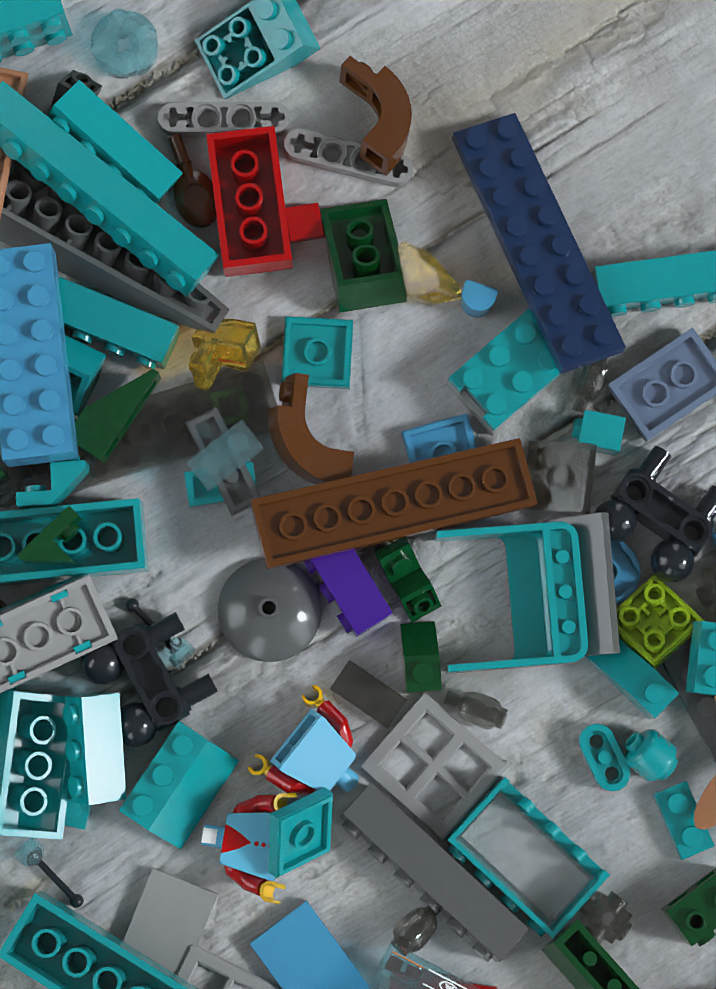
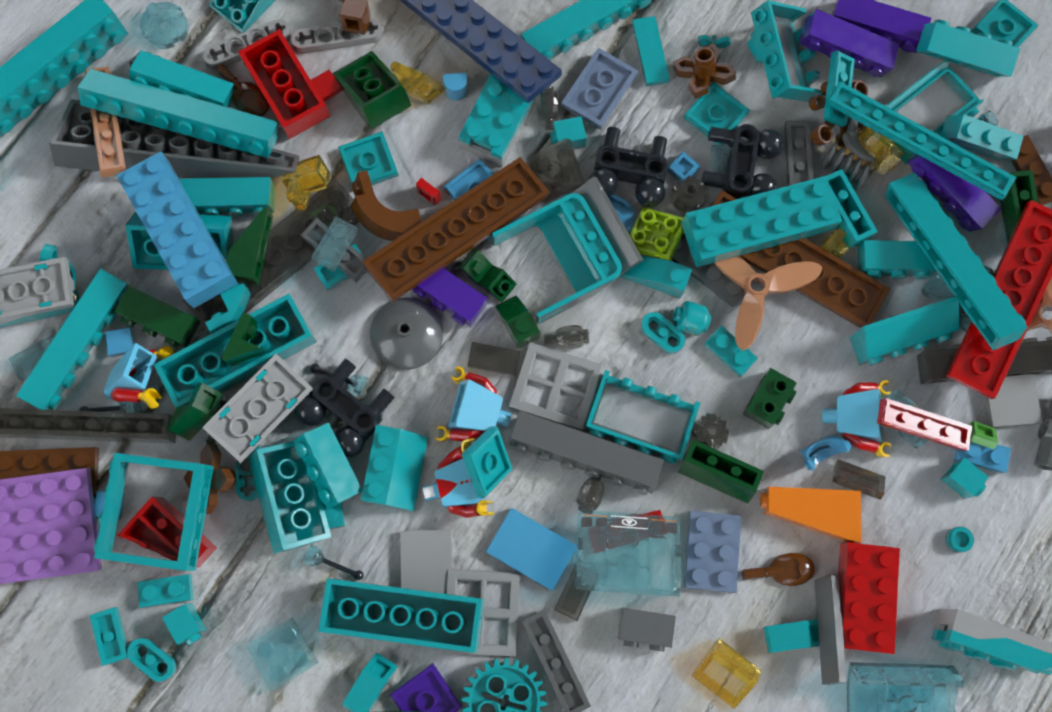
camera: 20 degrees left, 5 degrees down
(378, 431) = (428, 191): none -> red tile

